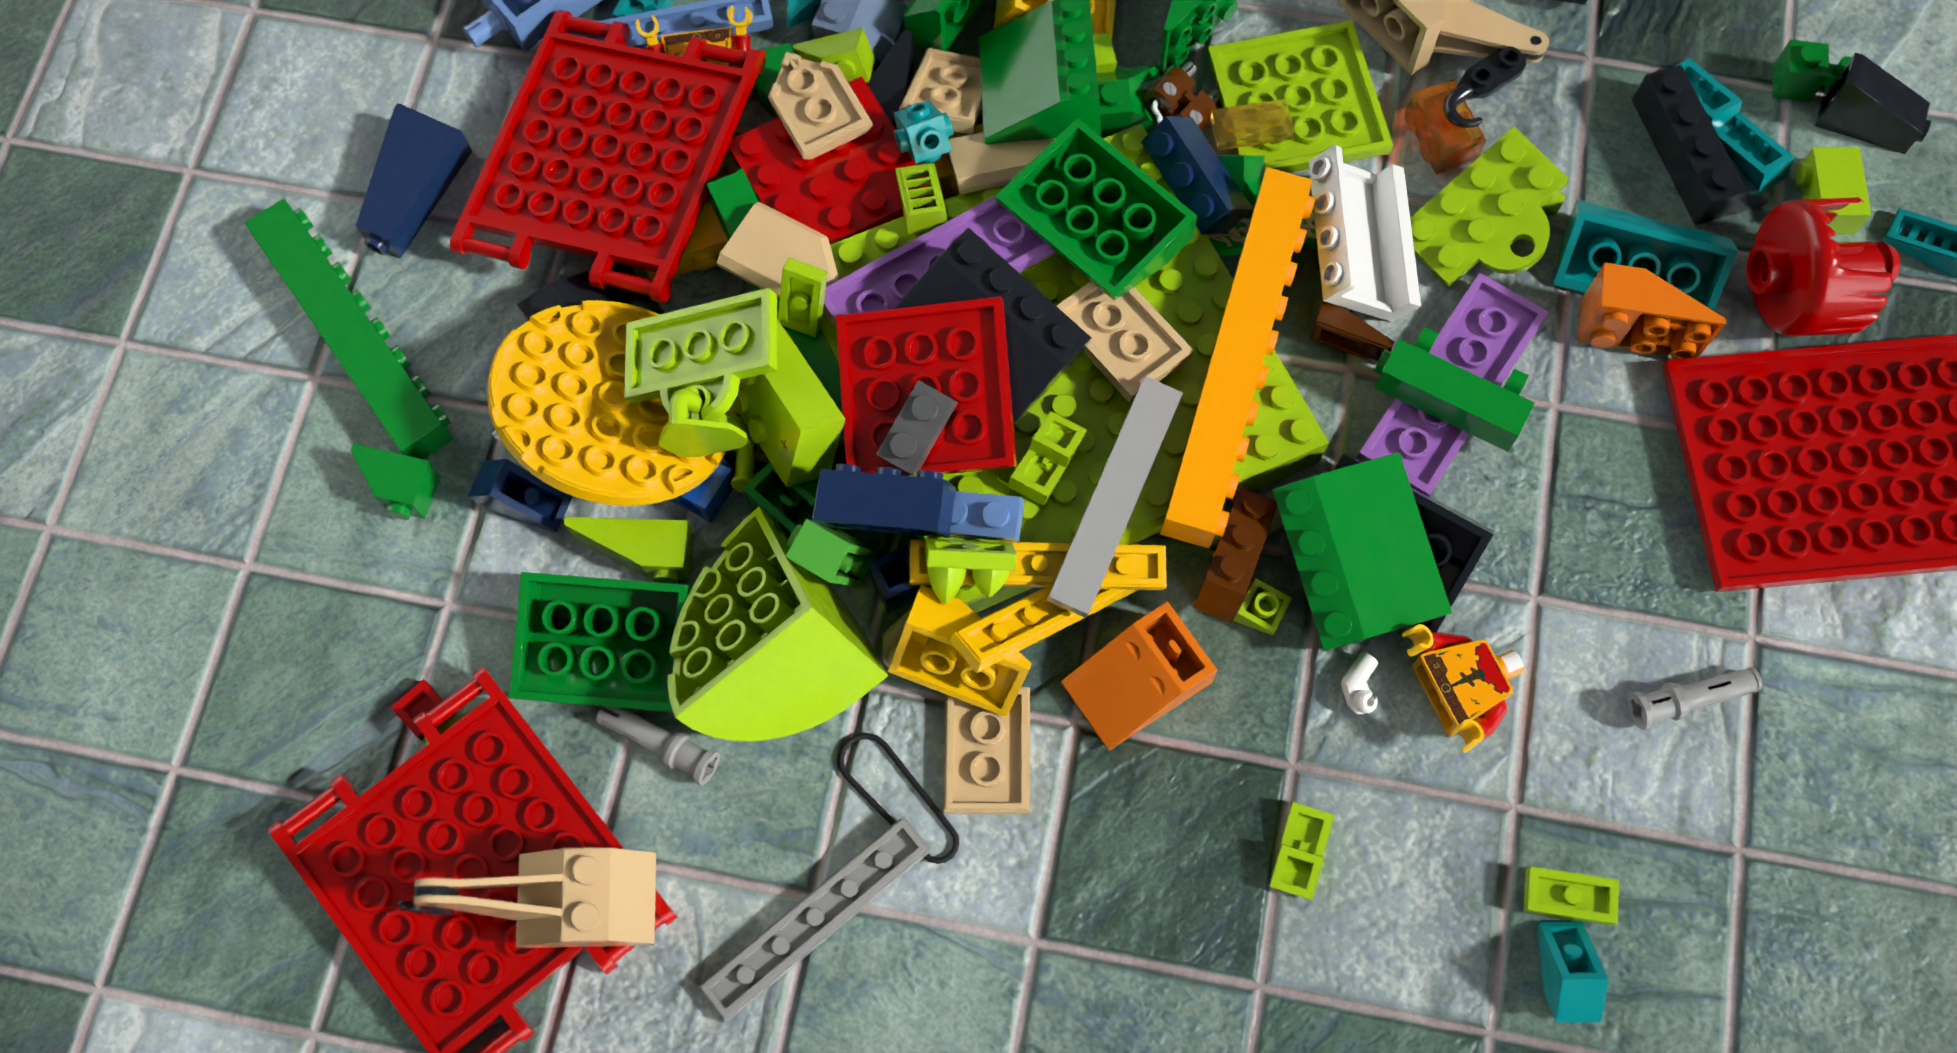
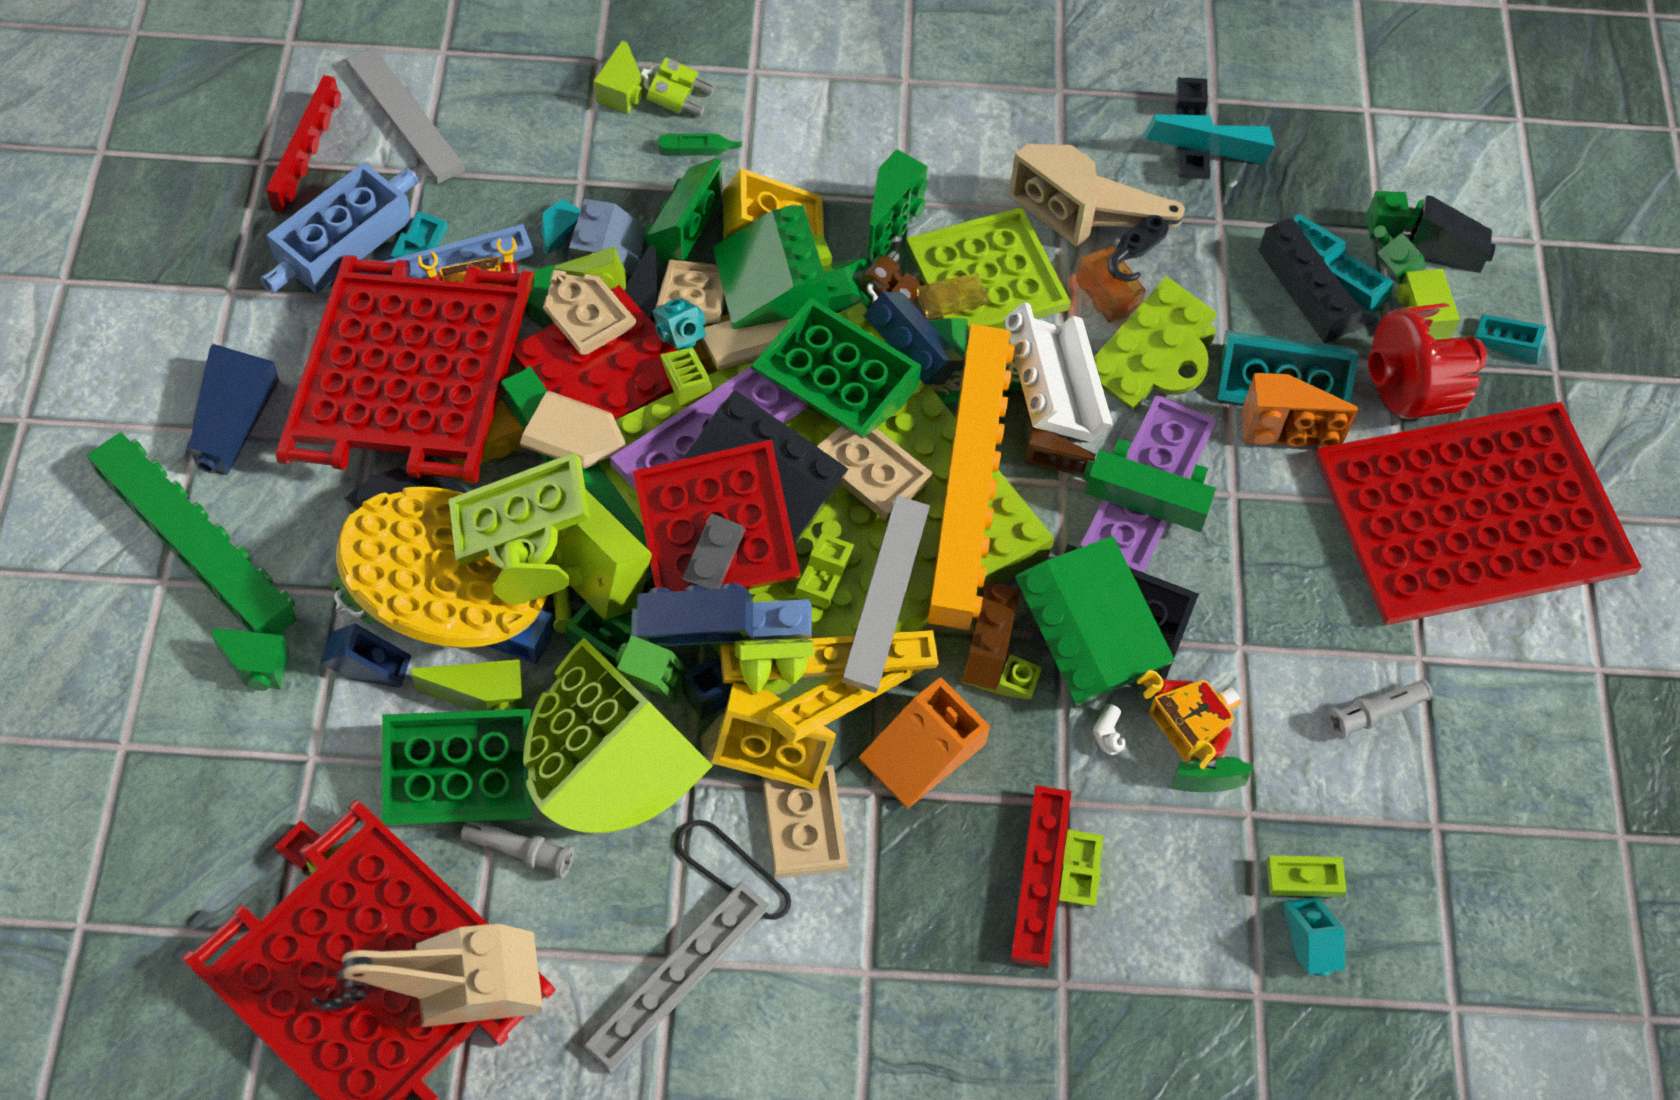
camera: 15 degrees left, 10 degrees down
(802, 296) = (601, 460): lime plate -> none
(1253, 855) = (1041, 877): none -> red plate
(1488, 758) = (1224, 775): none -> green slope
(1806, 124) = (1398, 254): none -> green brick

